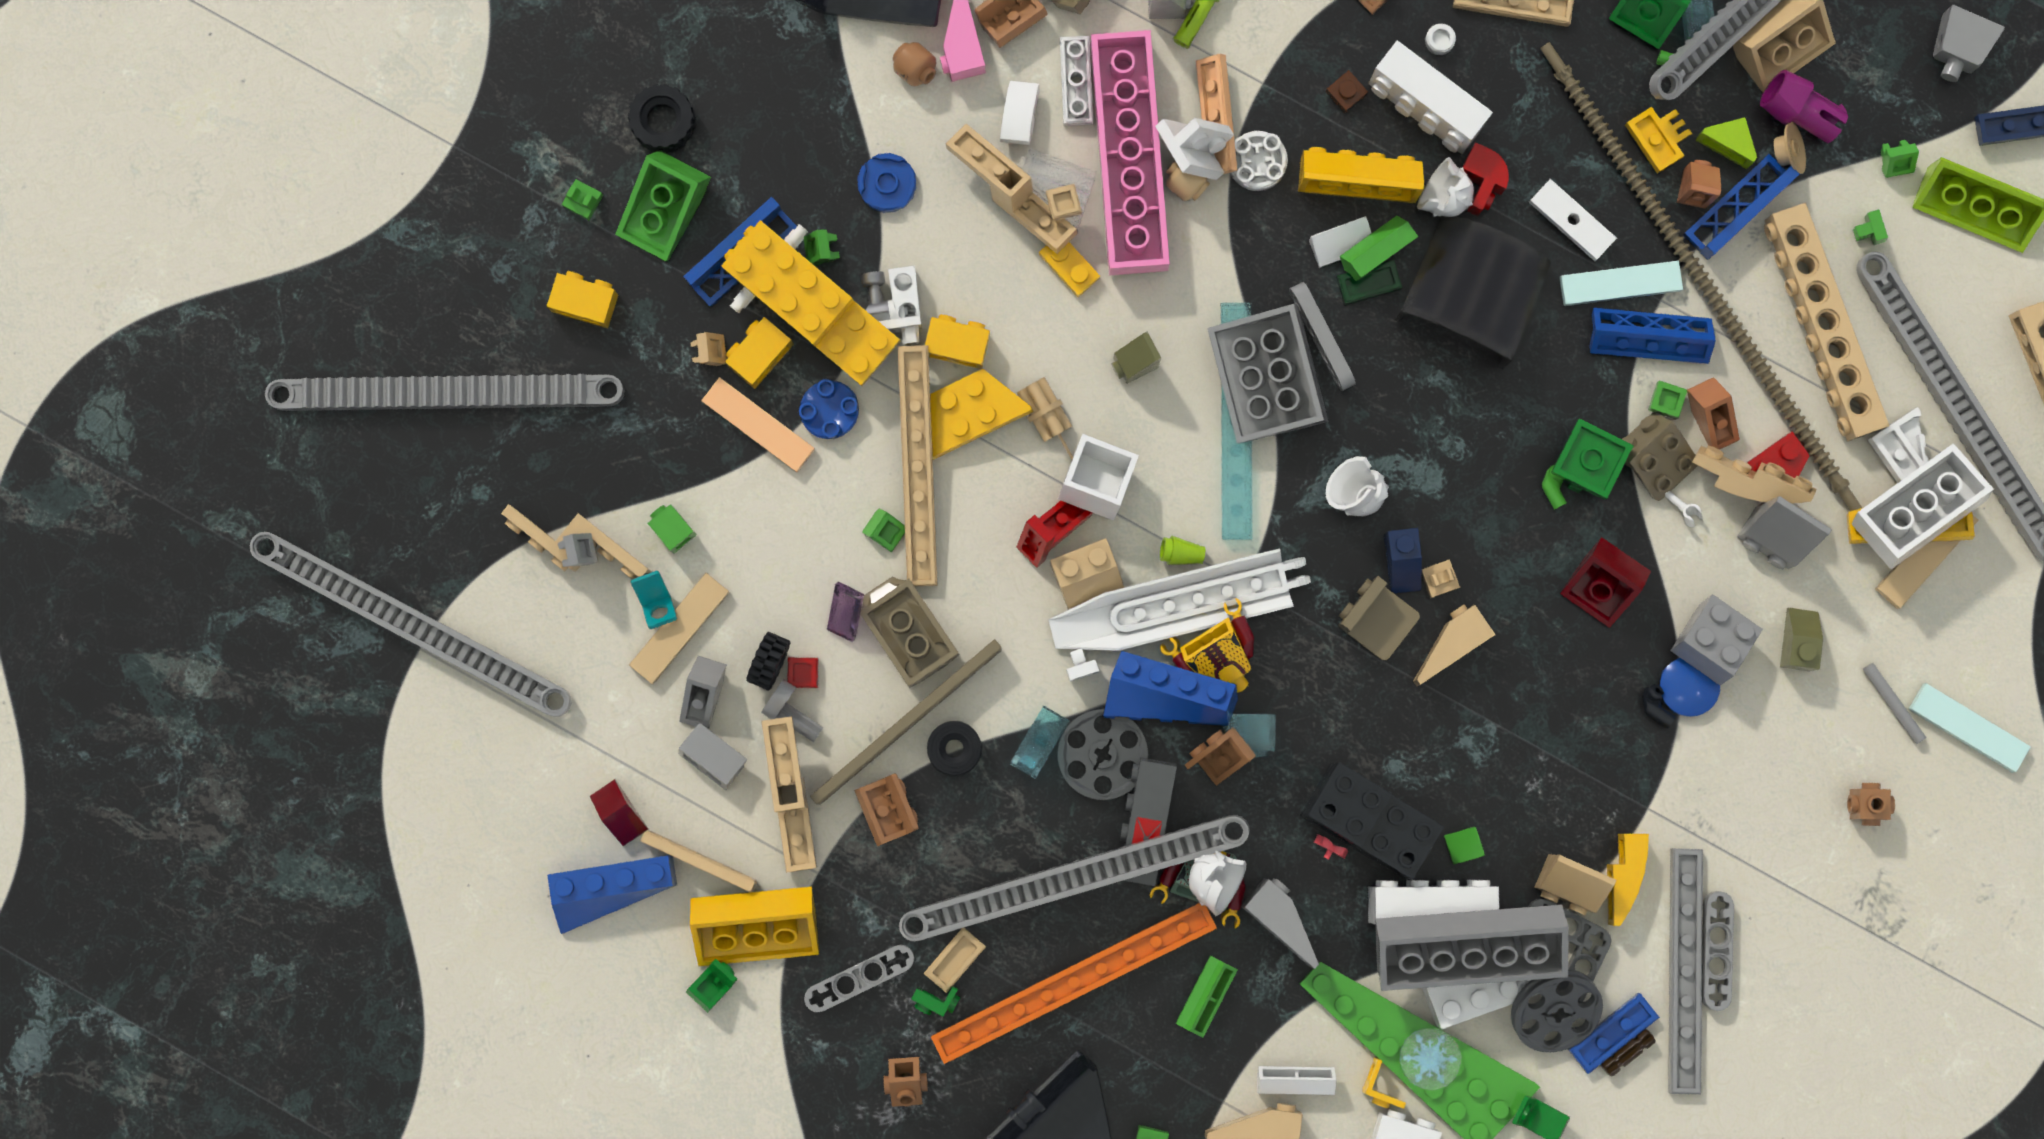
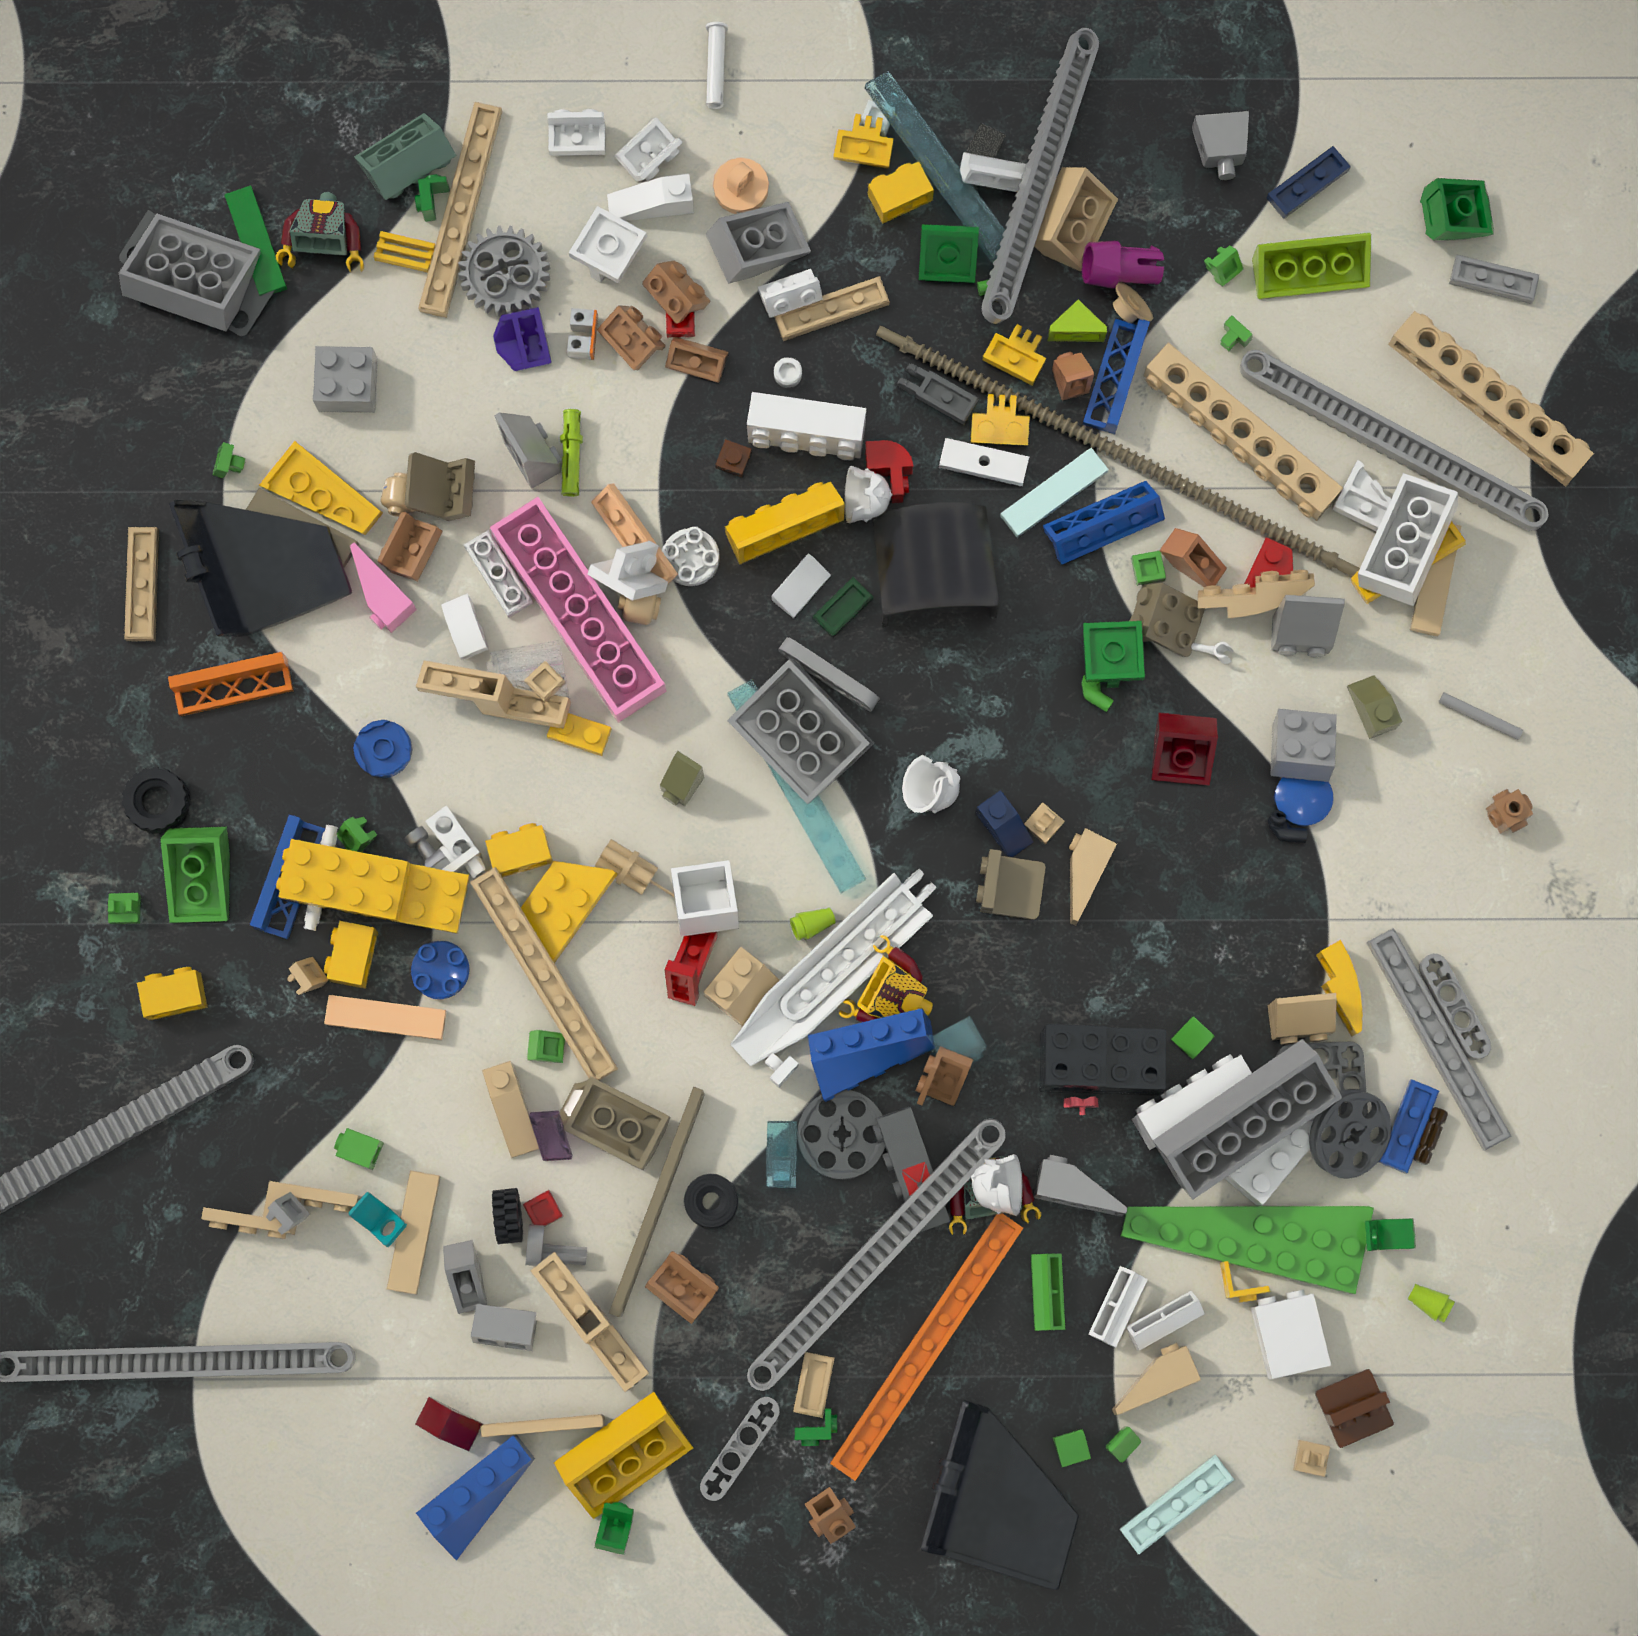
camera: 30 degrees left, 5 degrees down
(787, 39) = (227, 673): none -> orange fence
(823, 567) = (510, 1108): none -> tan slope
(914, 64) = (351, 634): medium nougat head -> none
(1261, 1044) = (1118, 1306): none -> white piece
(1377, 247) = (833, 574): bright green piece -> none
(1430, 1058) = (1267, 1236): clear tile -> none
(1568, 135) = (940, 394): none -> dark grey hinge
(1607, 193) = (1000, 424): none -> yellow hinge
(1969, 728) = (1553, 702): light aqua tile -> none

